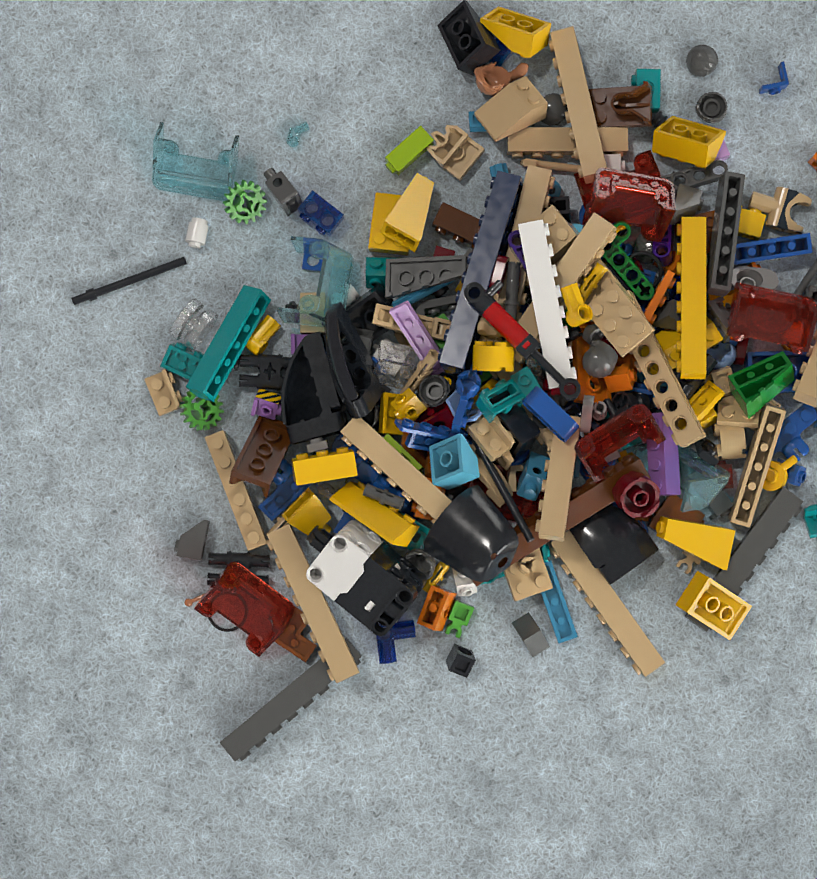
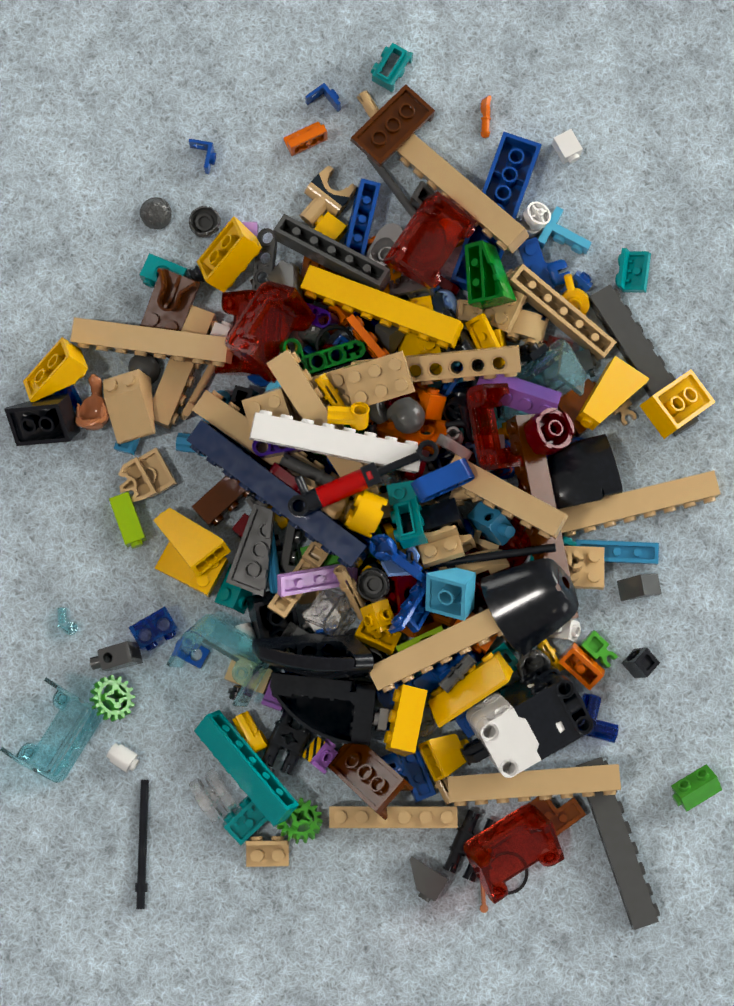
camera: 70 degrees left, 5 degrees down
(367, 752) = (696, 788): none -> bright green brick

